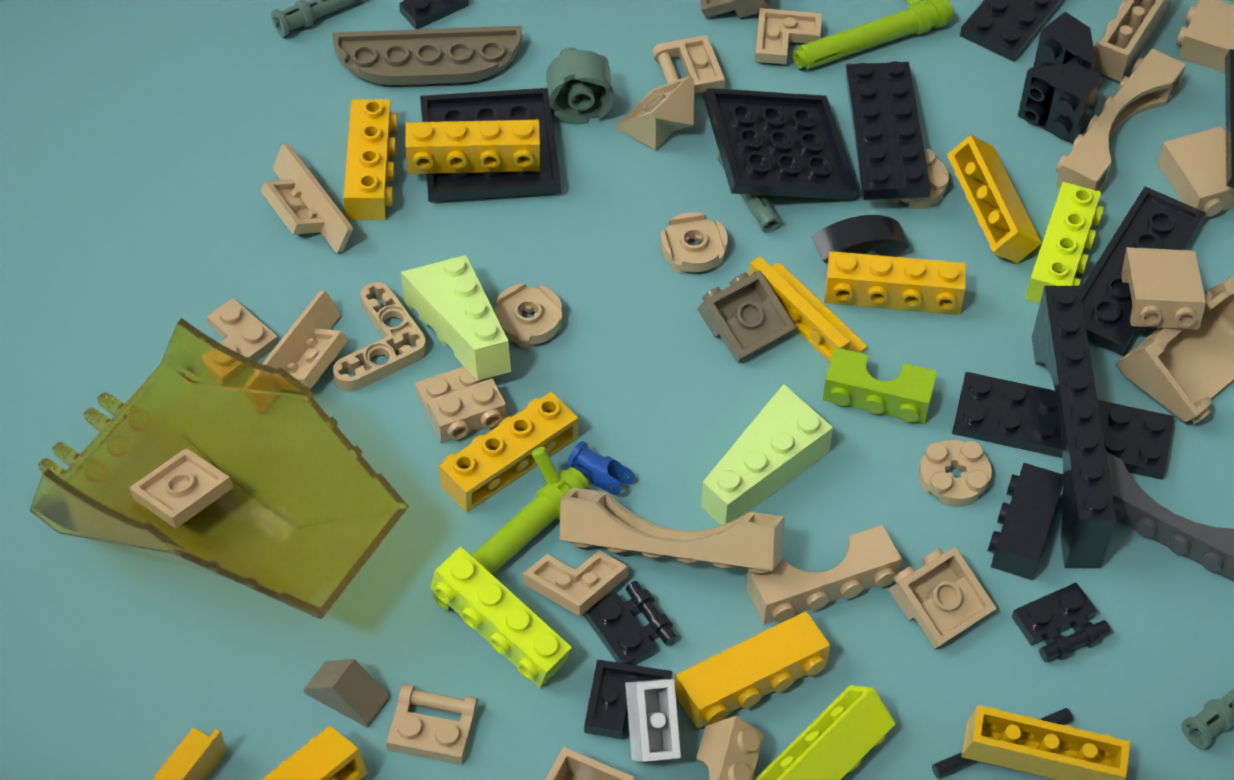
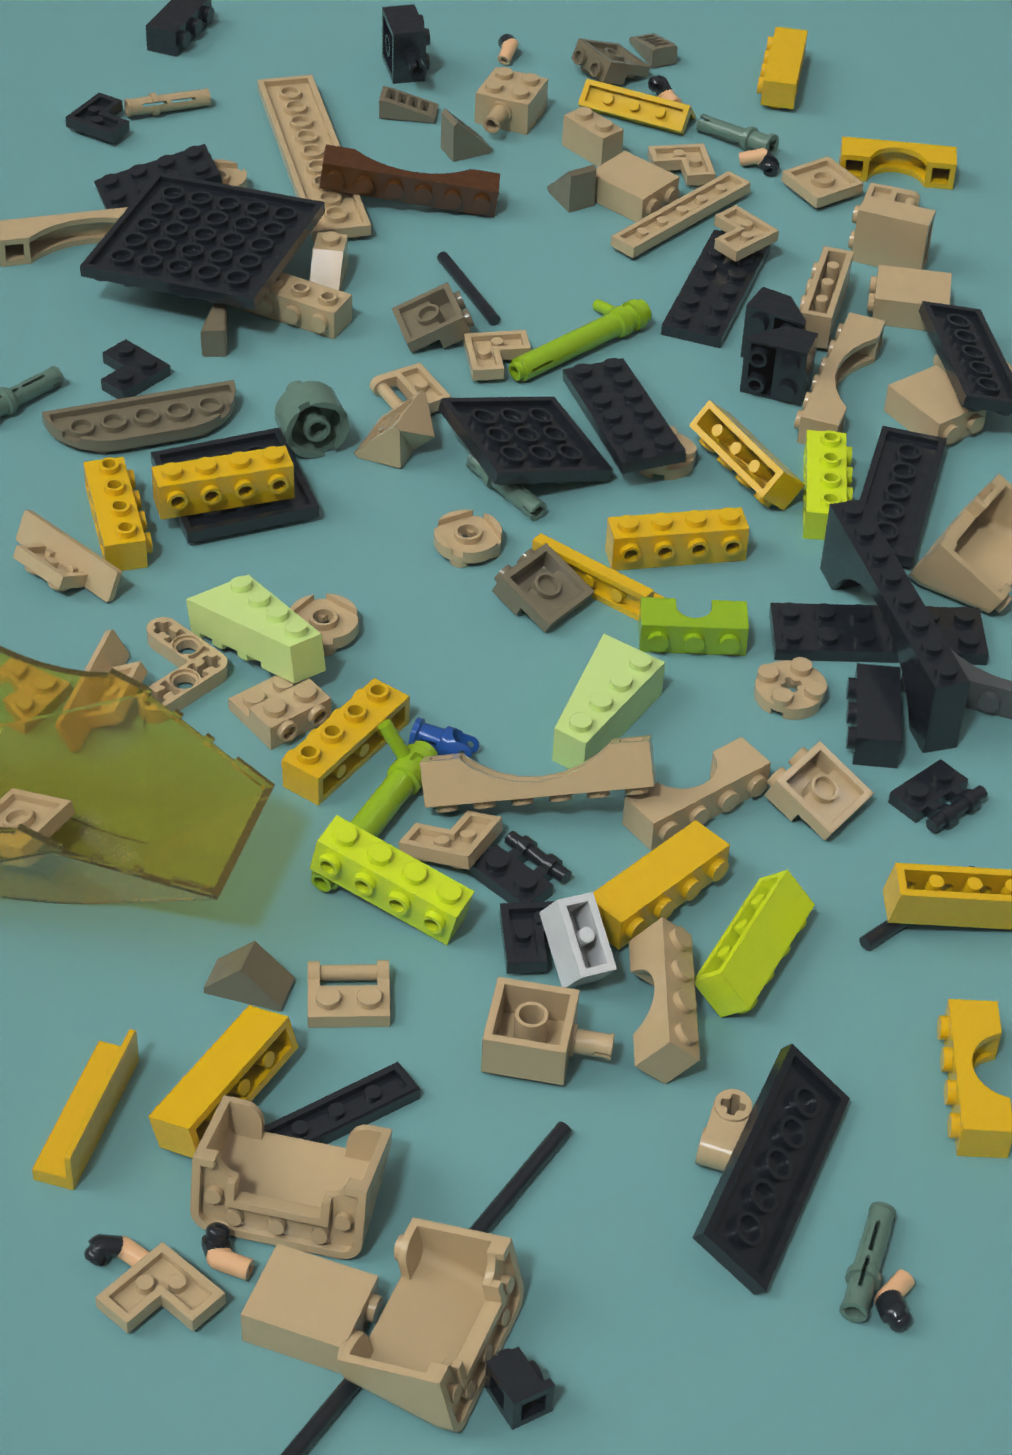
camera: 15 degrees left, 10 degrees down
(861, 236) = (630, 499): black brick -> none
(1164, 288) = (937, 496): tan panel -> none

